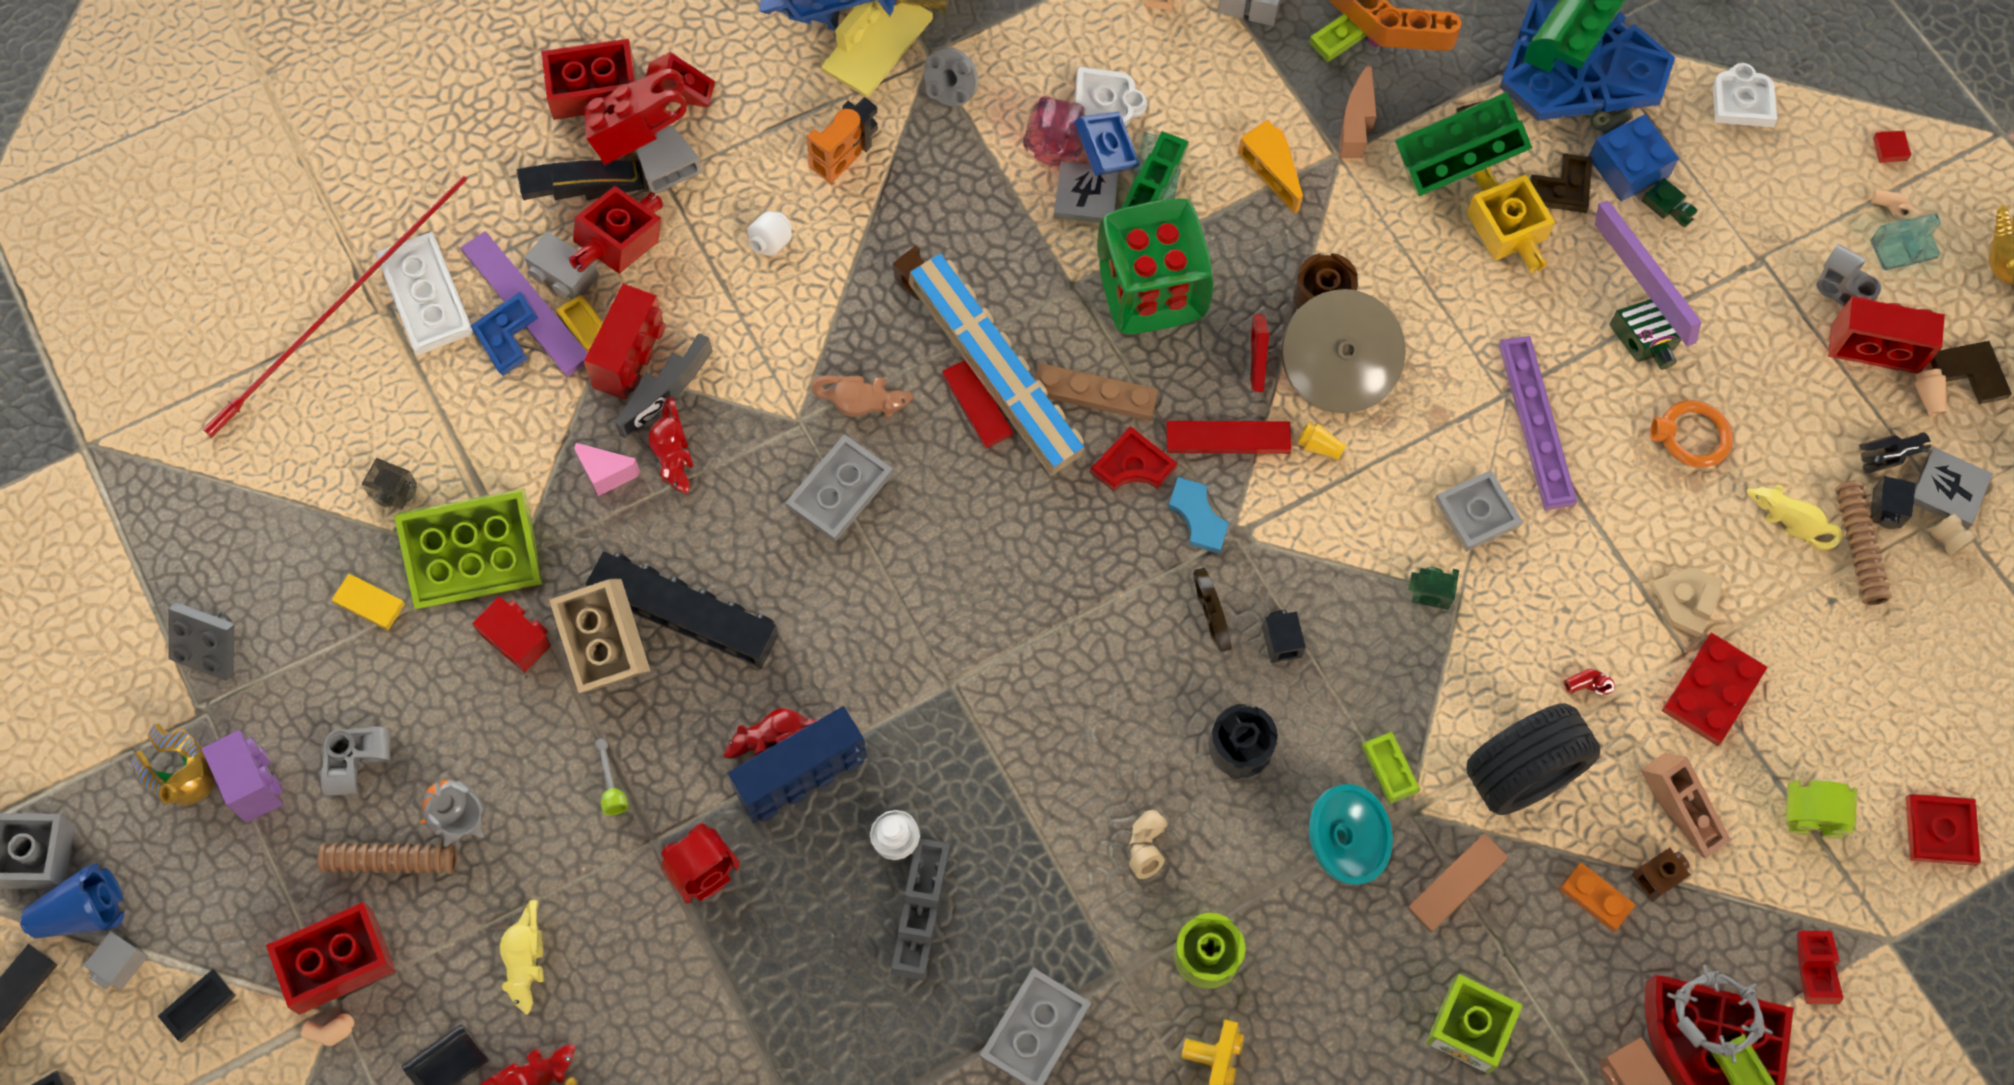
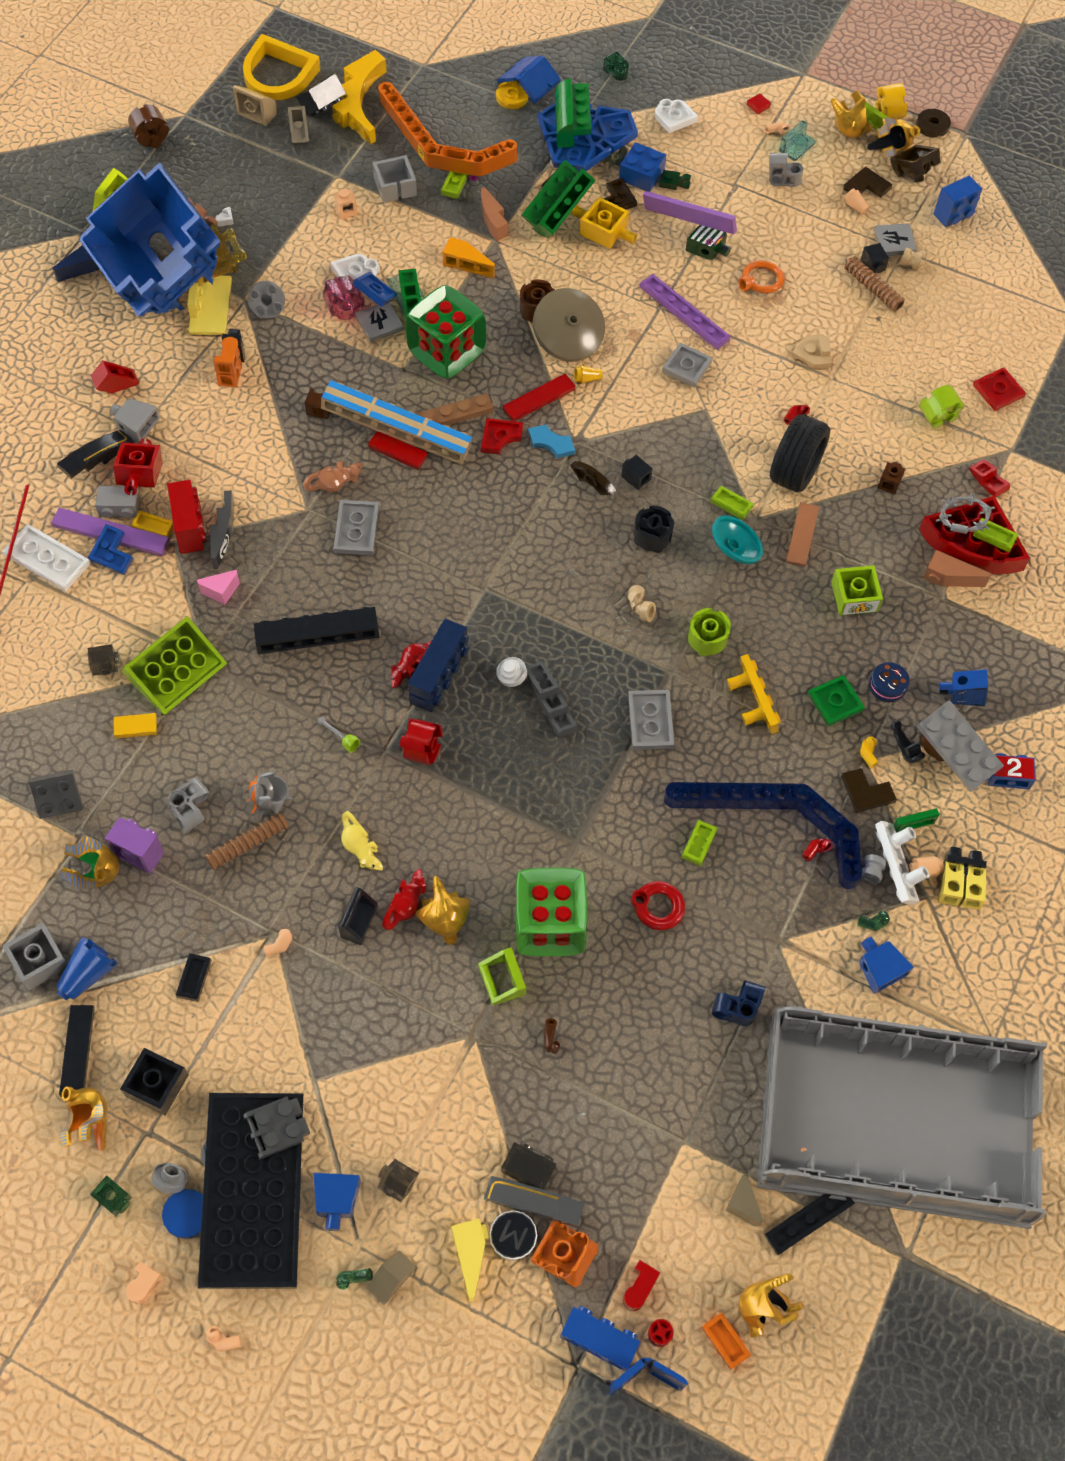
camera: 35 degrees left, 5 degrees down
(114, 962) = (130, 982): light grey brick -> none
(330, 958) = (255, 904): red brick -> none
(512, 633) = (231, 694): red brick -> none
(585, 73) = (63, 399): red brick -> none
(599, 635) = (284, 662): tan brick -> none
(632, 115) = (105, 401): red brick -> none
(667, 444) = (246, 556): red animal -> none
(769, 233) = (223, 425): white head -> none
(1259, 350) = (525, 344): red tile -> none
(1433, 587) = (692, 410): clear green brick -> none
(1597, 897) = (869, 505): orange plate -> none
(1686, 802) = (878, 439): nougat slope -> none
(1714, 689) = (854, 385): red plate -> none
(1801, 517) = (838, 287): light yellow animal -> none
(1886, 335) = (819, 185): red brick -> none
(1891, 451) = (858, 236): black arm -> none

